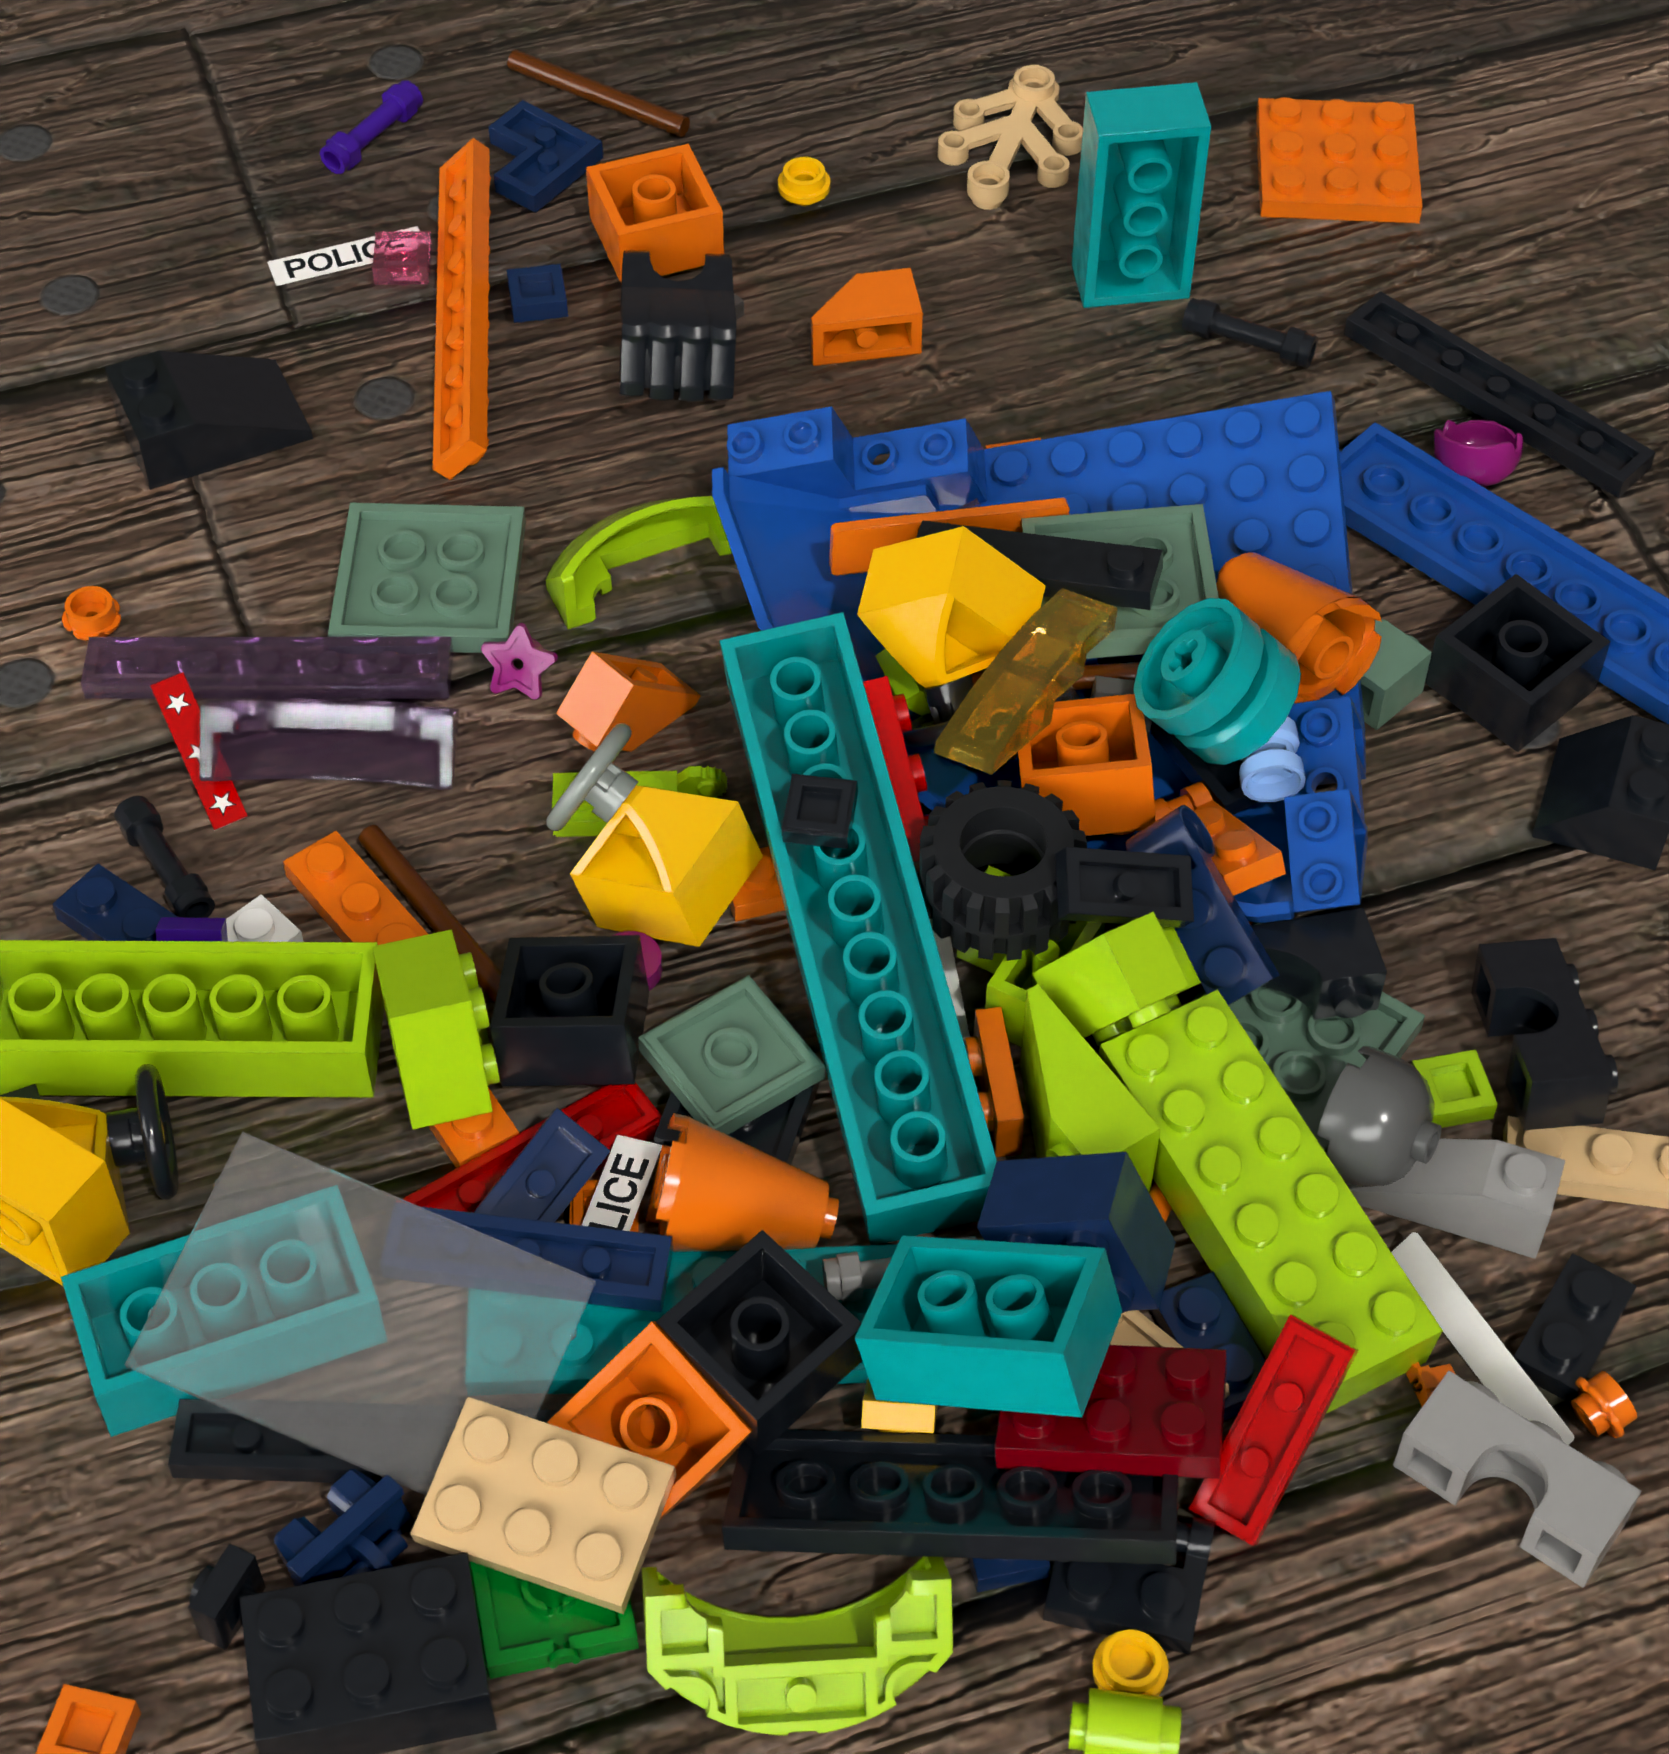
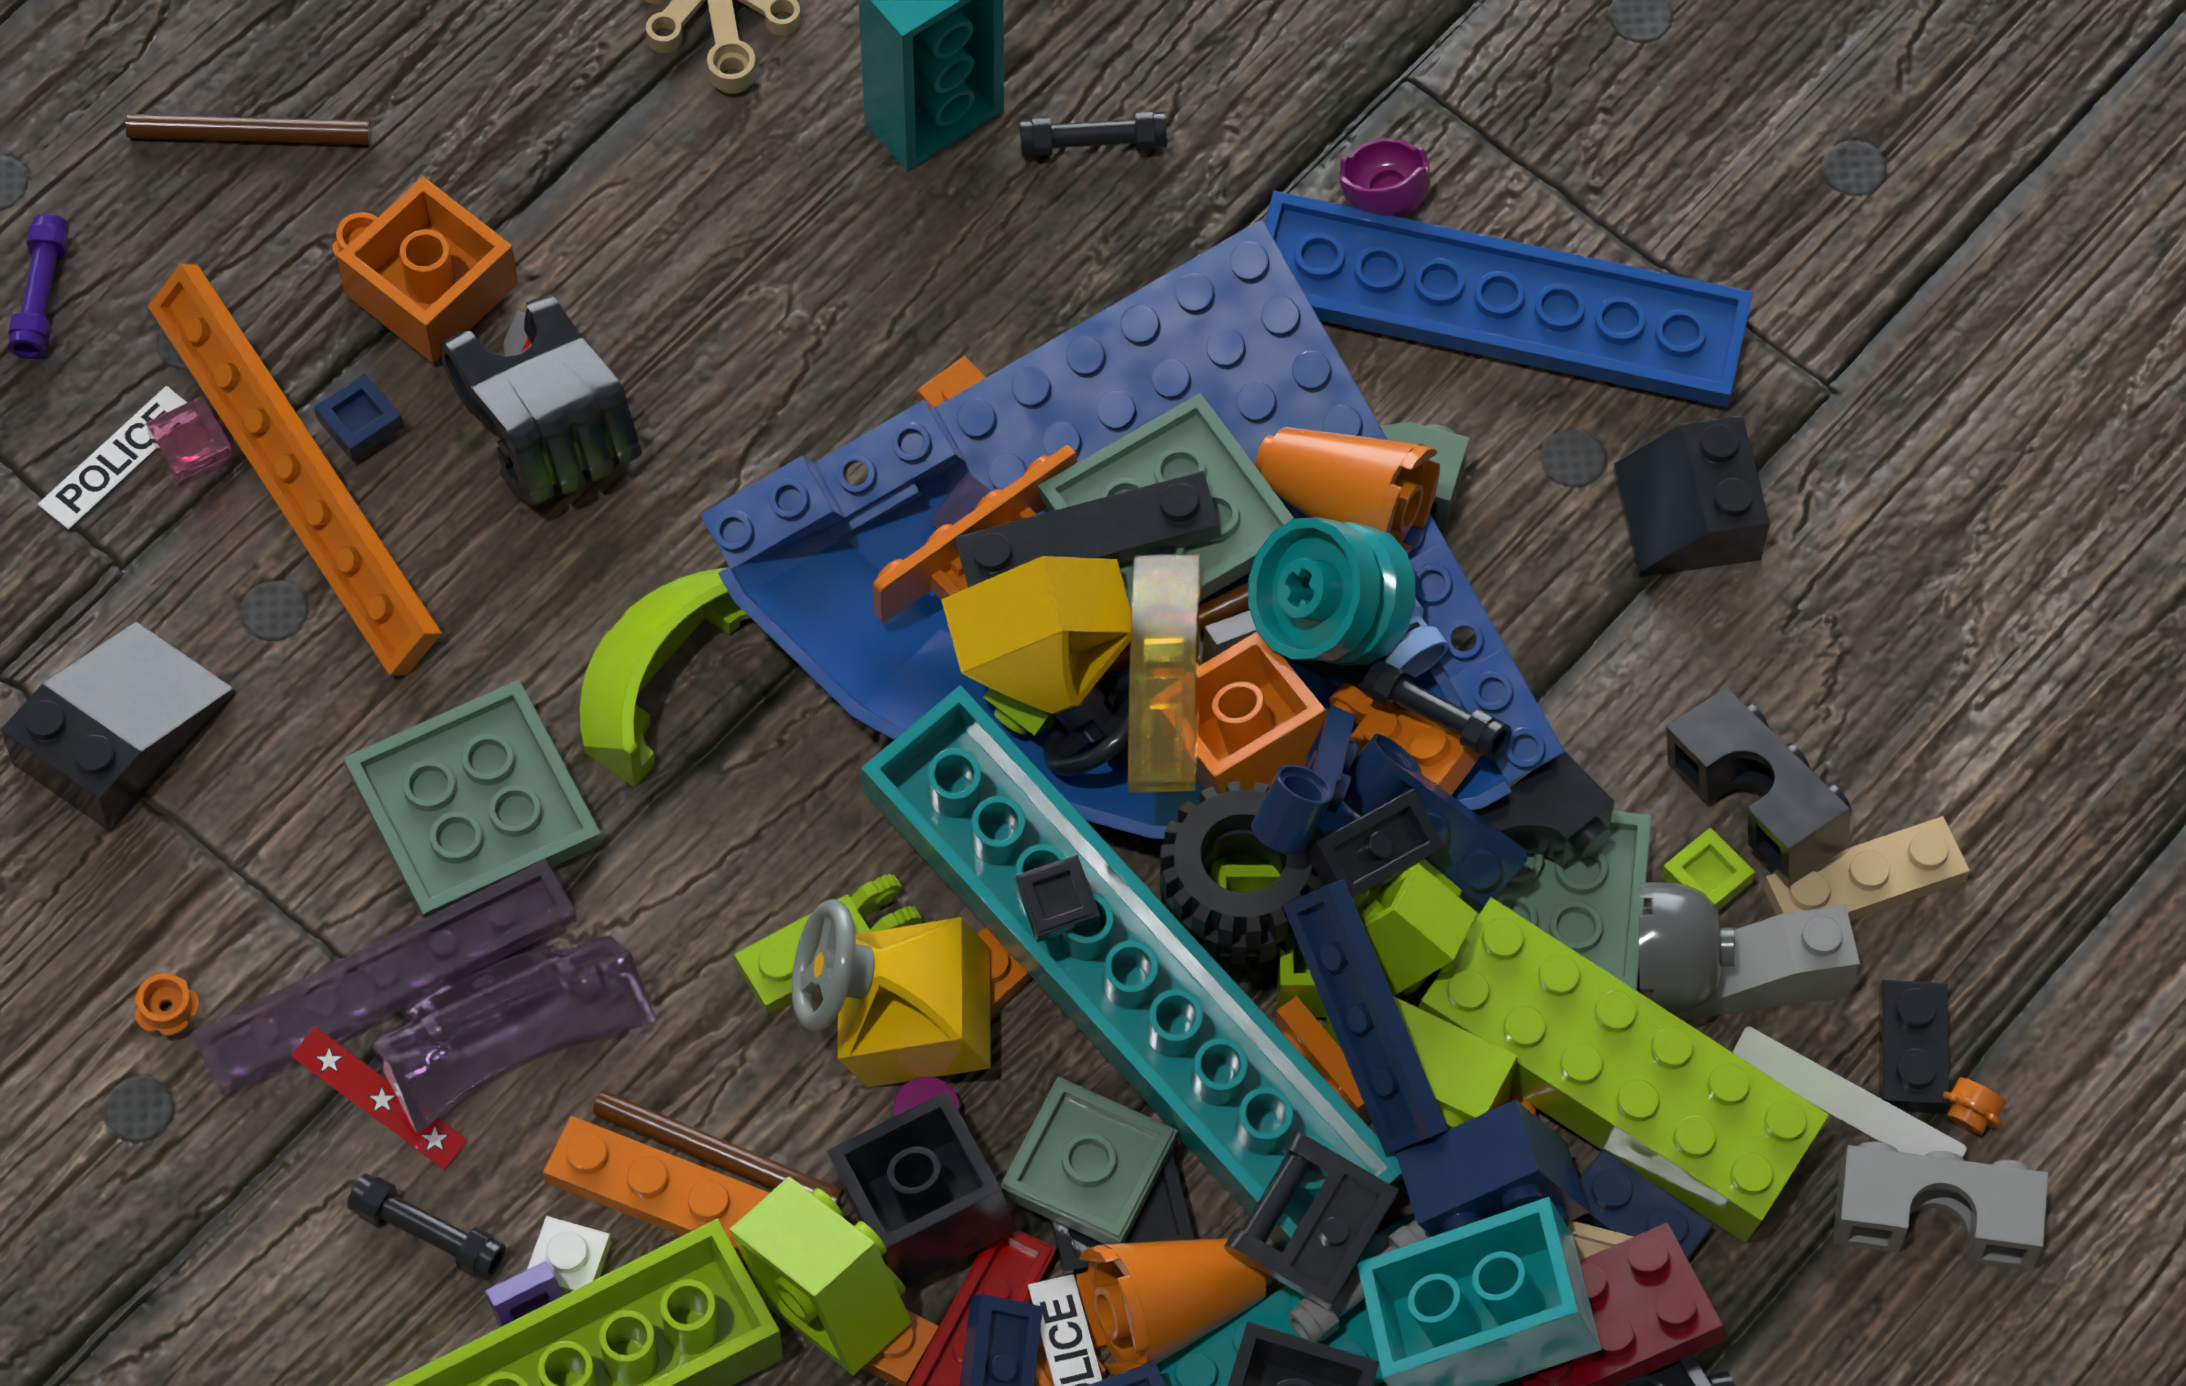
camera: 30 degrees left, 10 degrees up
(109, 909) = (425, 1306): dark blue plate -> none
(534, 659) = (625, 837): magenta plate -> none
(546, 153) = (259, 233): dark blue plate -> none
(627, 692) = (755, 847): orange slope -> none
(804, 181) = (541, 136): yellow plate -> none
(869, 319) = (720, 291): orange slope -> none
(894, 1197) = (1332, 1229): none -> black plate
(905, 771) = (1056, 765): red plate -> none
(1031, 1022) = (1365, 1017): none -> dark blue plate
(1073, 810) = (1305, 792): none -> dark blue plate
(1274, 1429) = (1740, 1266): red tile -> none
(1279, 840) = (1476, 730): none -> black bar
(1426, 1379) = (1826, 1154): orange piece -> none
(1500, 394) = (1364, 97): black plate -> none
(1516, 662) = (1545, 408): black brick -> none

